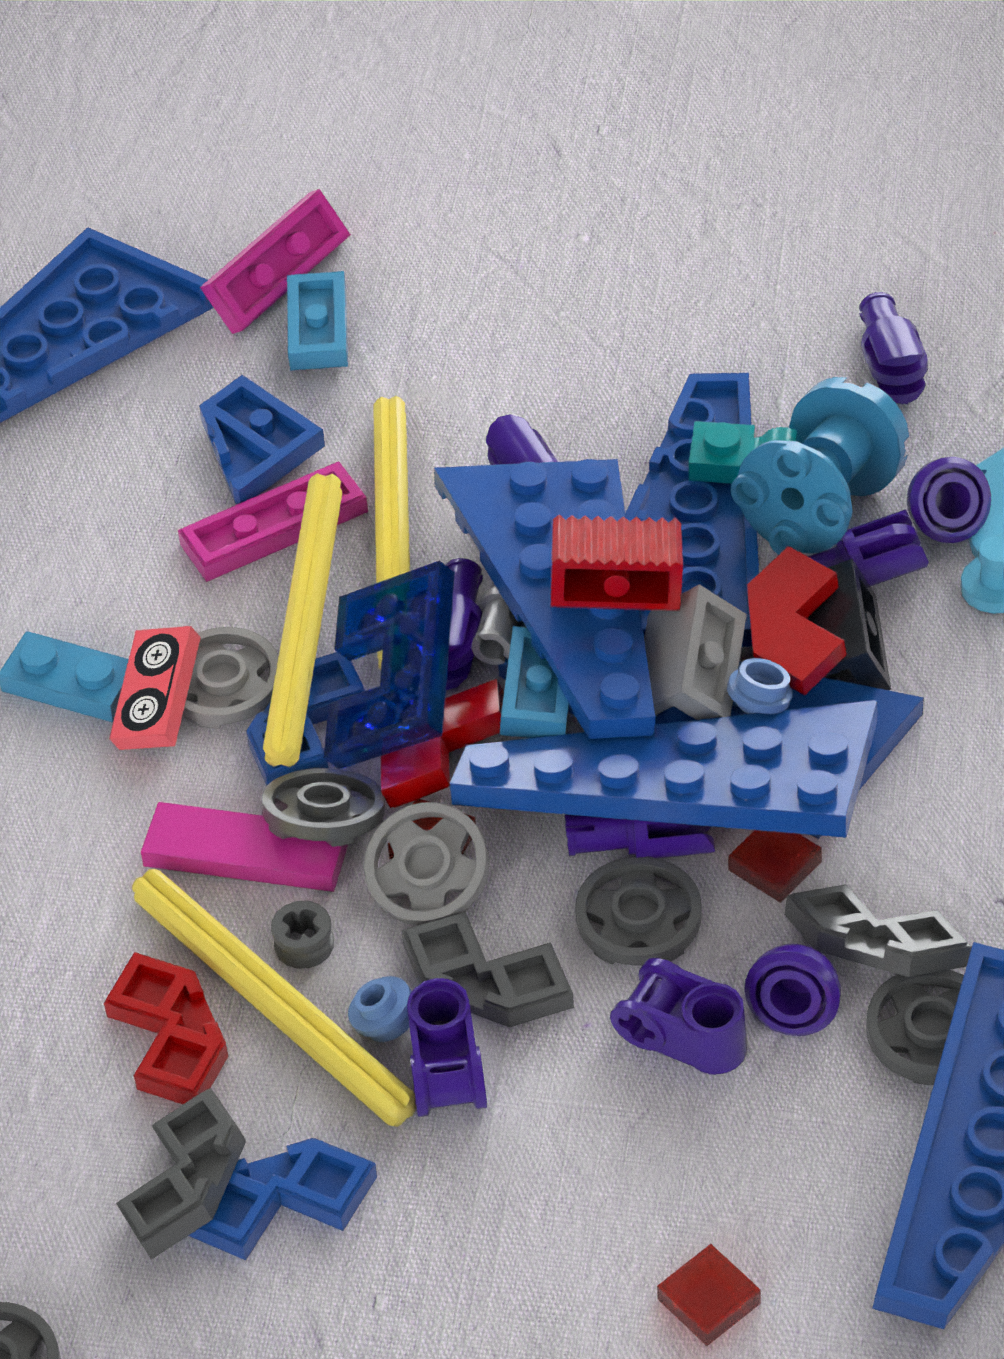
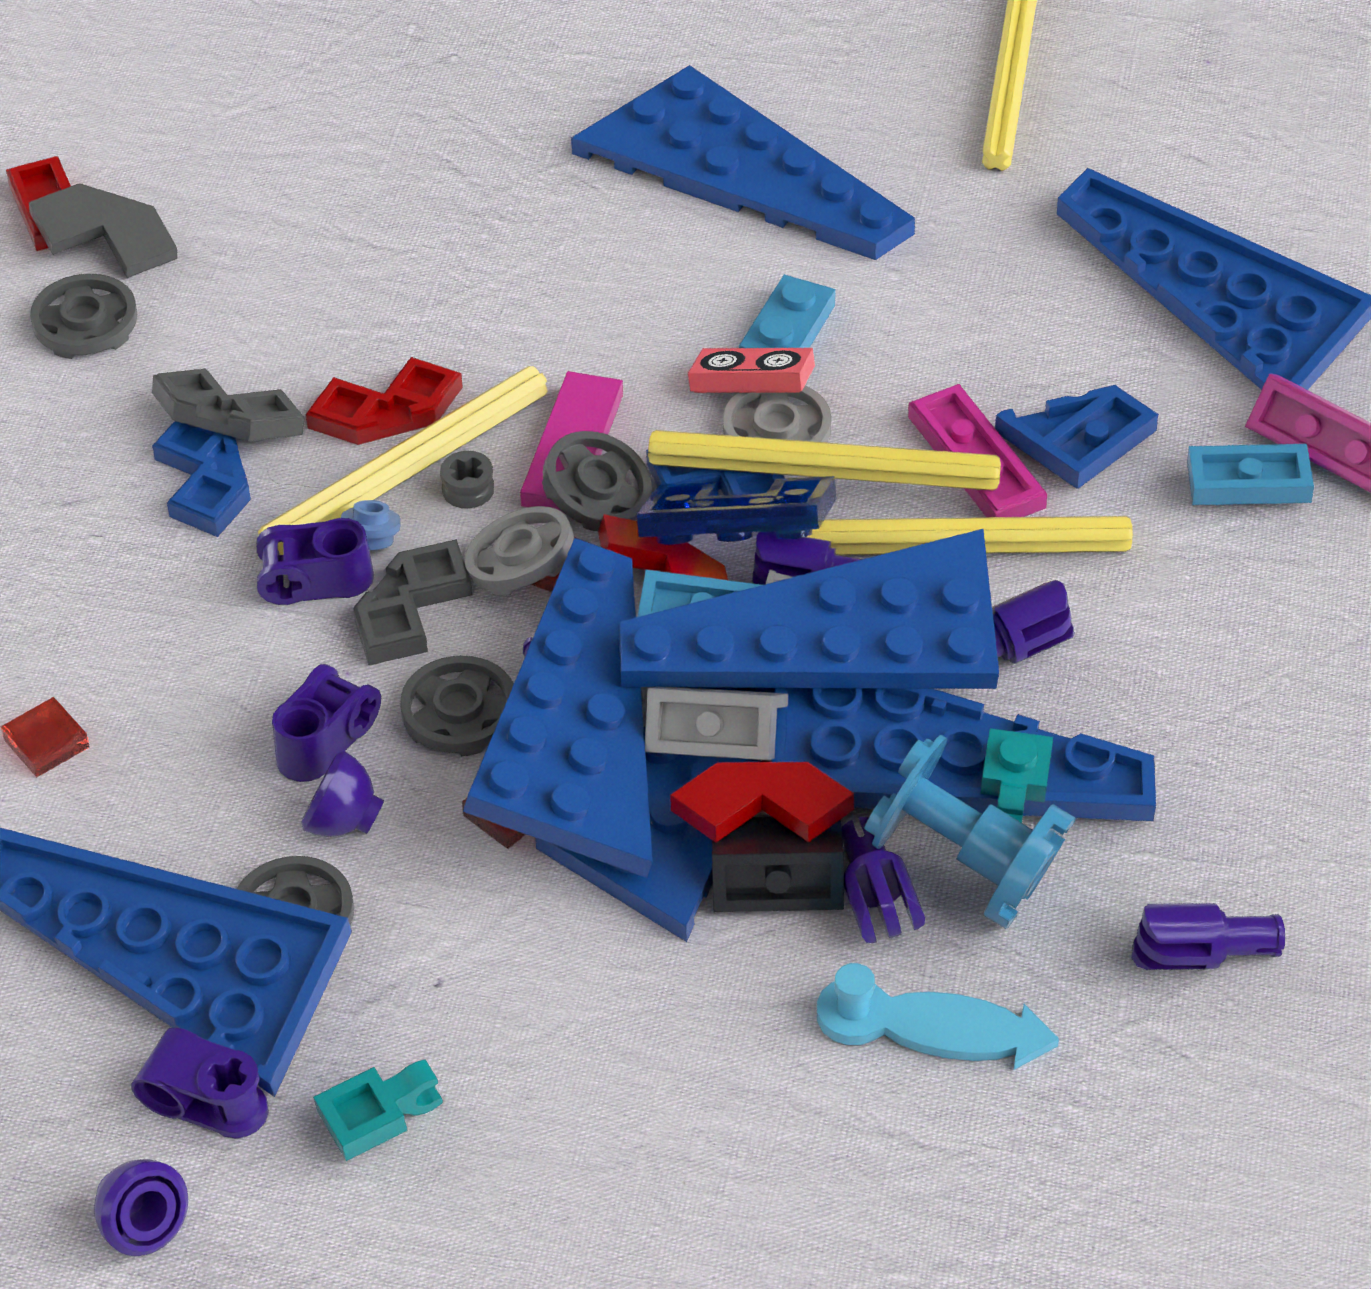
camera: 90 degrees right, 0 degrees up
(616, 563) = (795, 628): red brick -> none
(760, 687) = (673, 751): medium blue plate -> none
(906, 945) = (373, 878): dark grey tile -> none
(949, 499) = (947, 955): dark purple brick -> none

